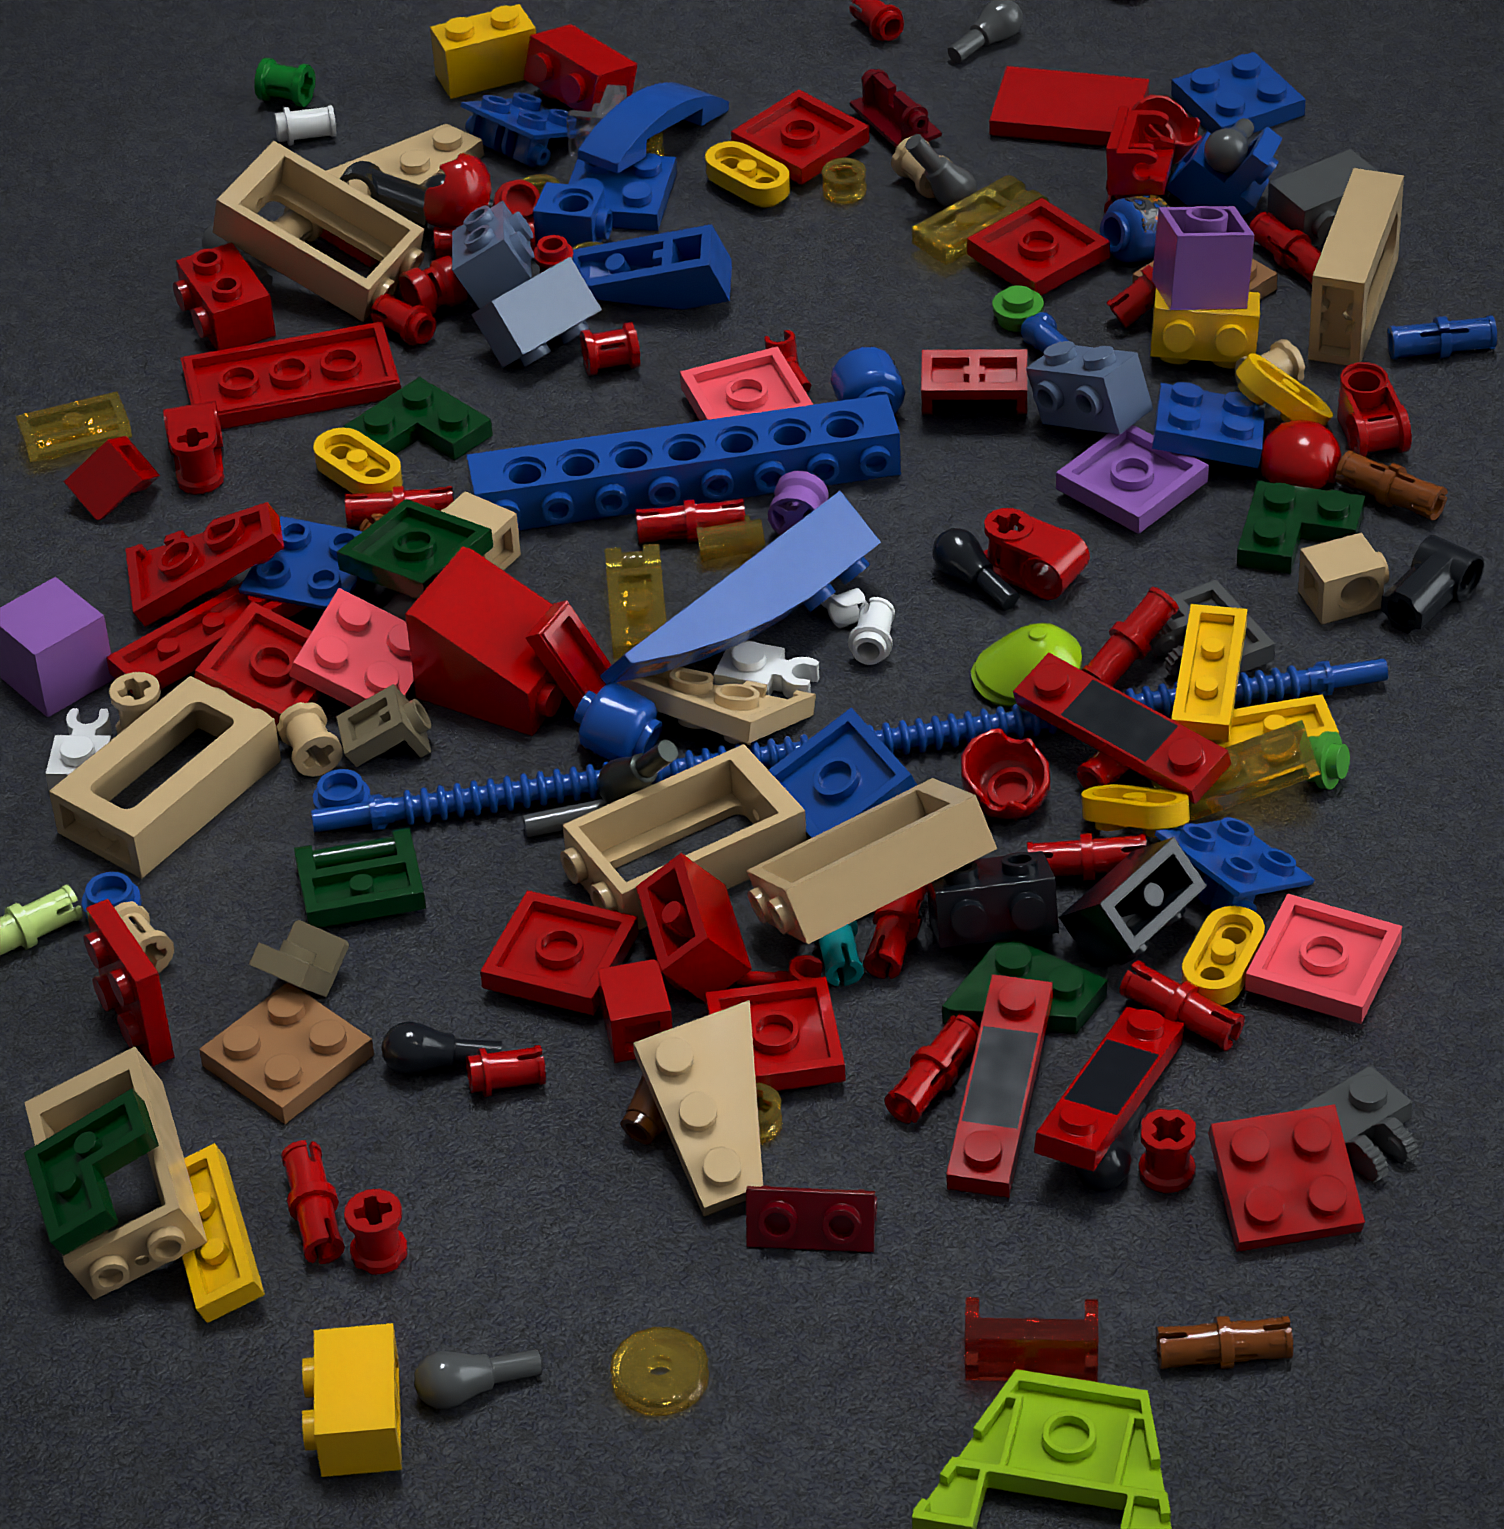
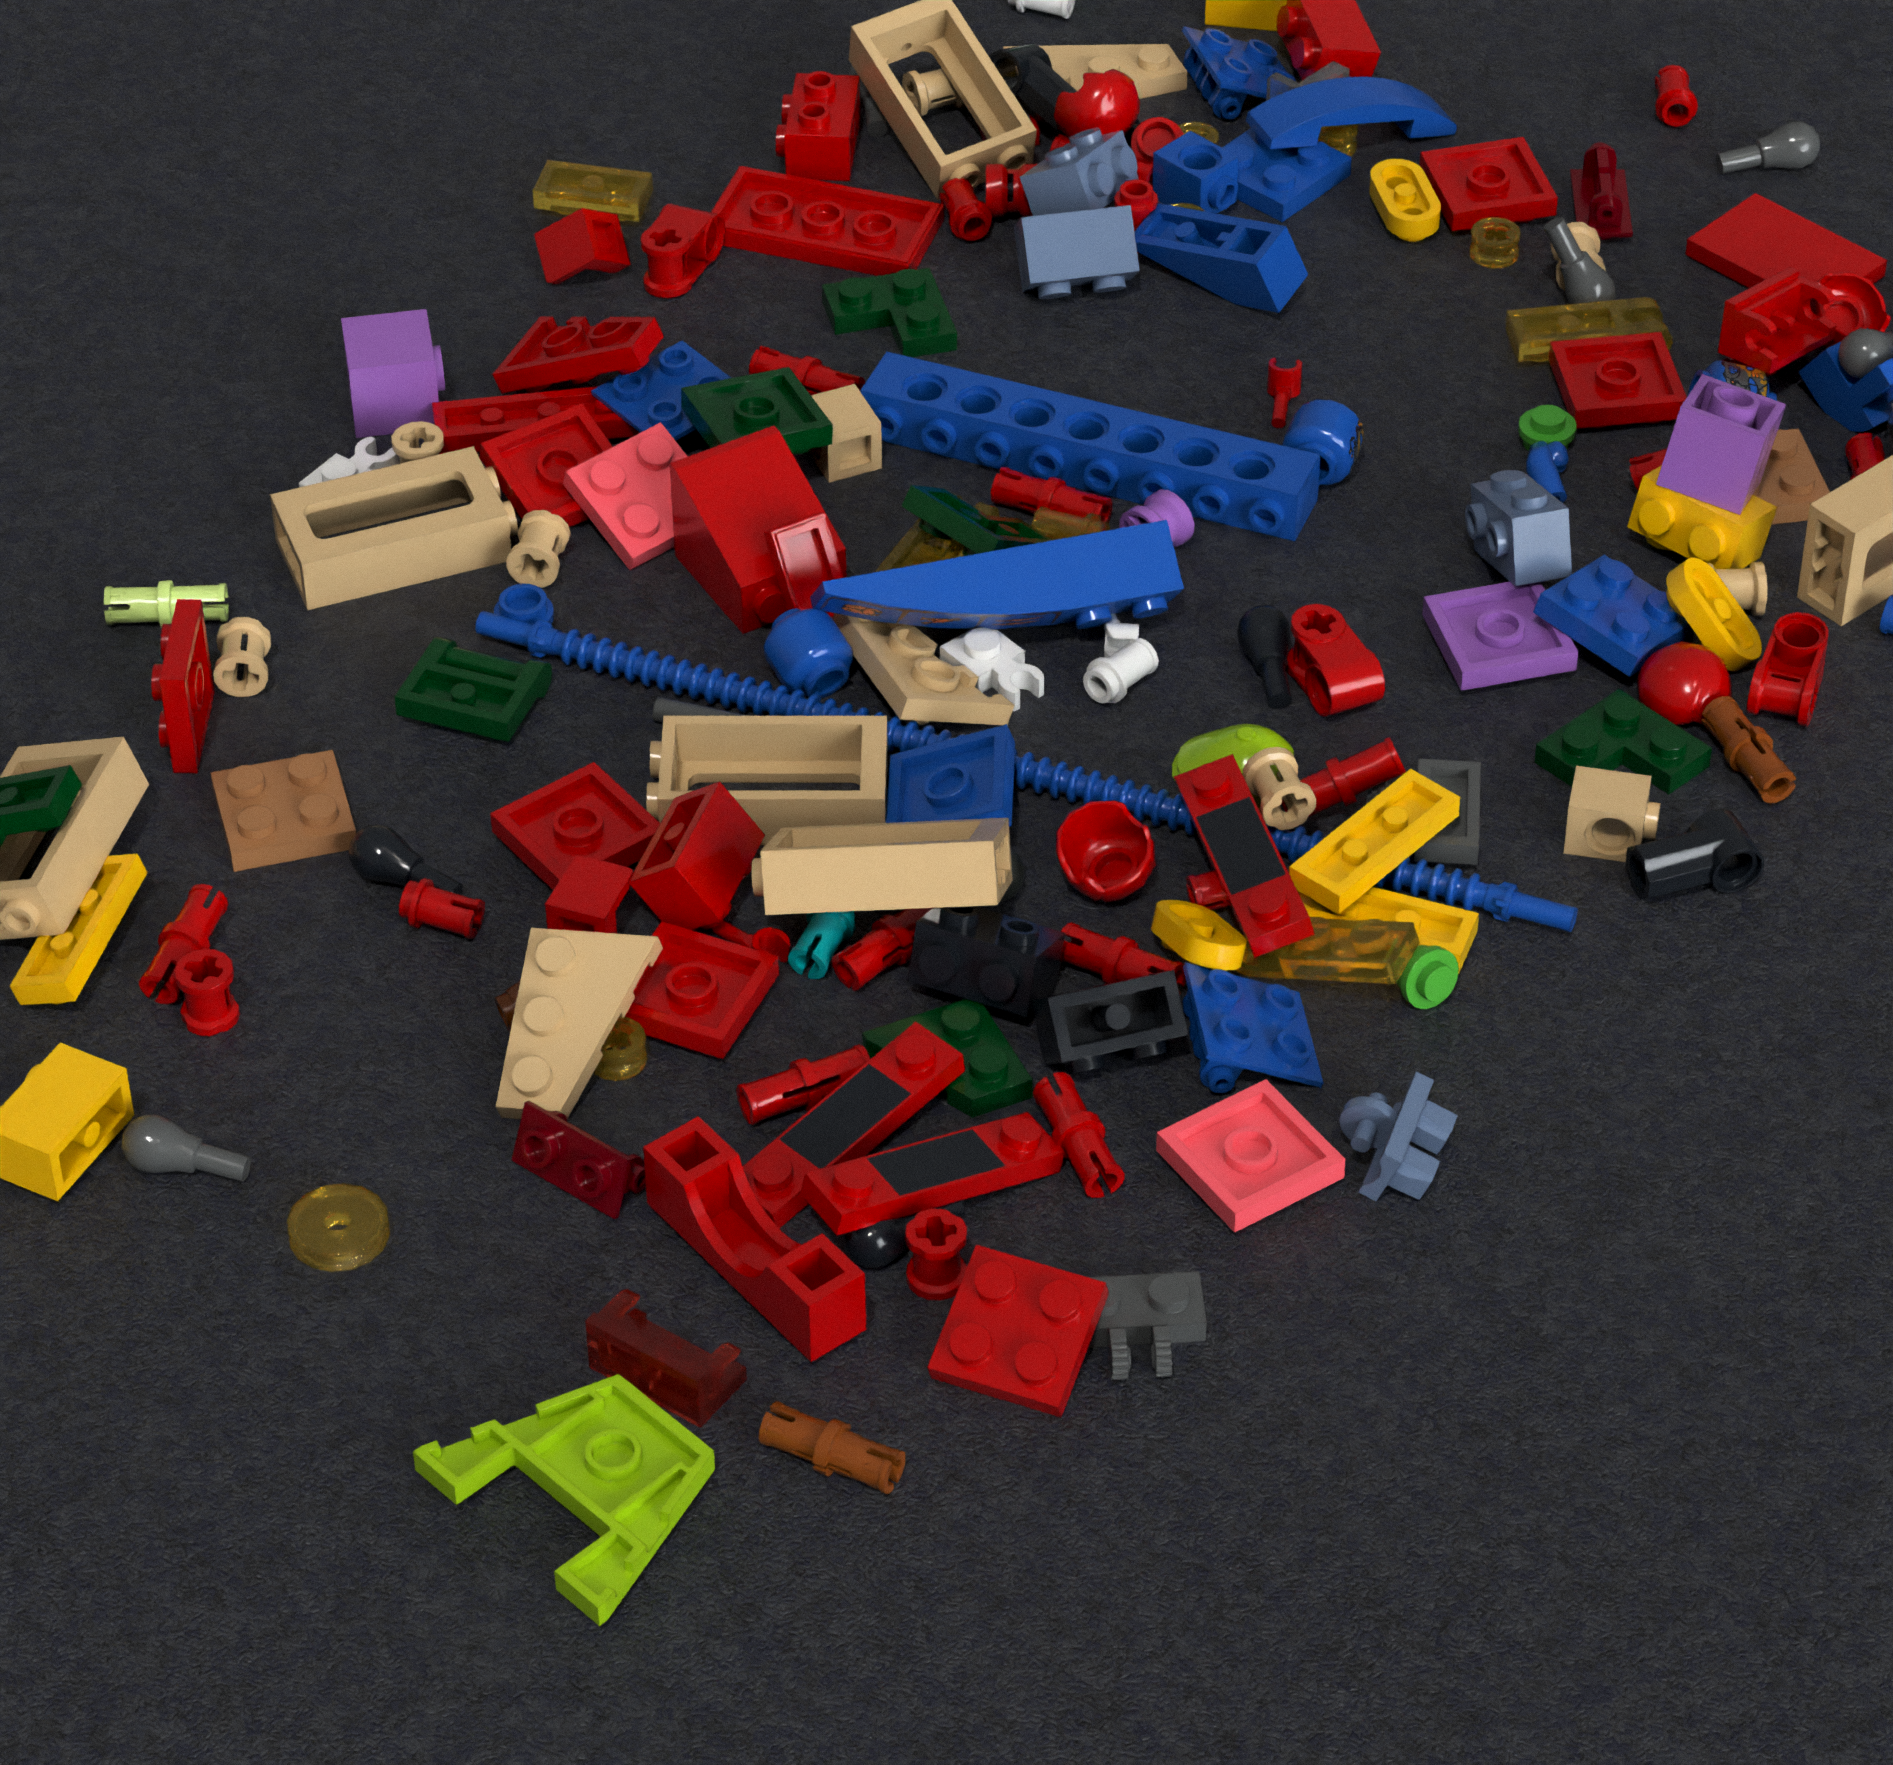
camera: 30 degrees right, 0 degrees up
(111, 886) = (261, 605): blue plate -> none
(305, 959) = (355, 741): dark tan bracket -> none
(356, 461) = (803, 321): yellow plate -> none
(383, 723) = (610, 561): dark tan bracket -> none
(626, 353) = (1139, 308): red bush -> none
(634, 773) = (761, 696): pearl dark grey piece -> none
(692, 566) = (951, 517): none -> dark green plate
(743, 386) = (1212, 395): coral plate -> none
(954, 1194) = (801, 1289): none -> red arch
(974, 376) = (1422, 472): red hinge -> none
(1103, 661) = (1263, 783): none -> tan bush
(1223, 952) = (1150, 1104): yellow plate -> none
(1419, 892) = (1388, 1129): none -> sand blue hips

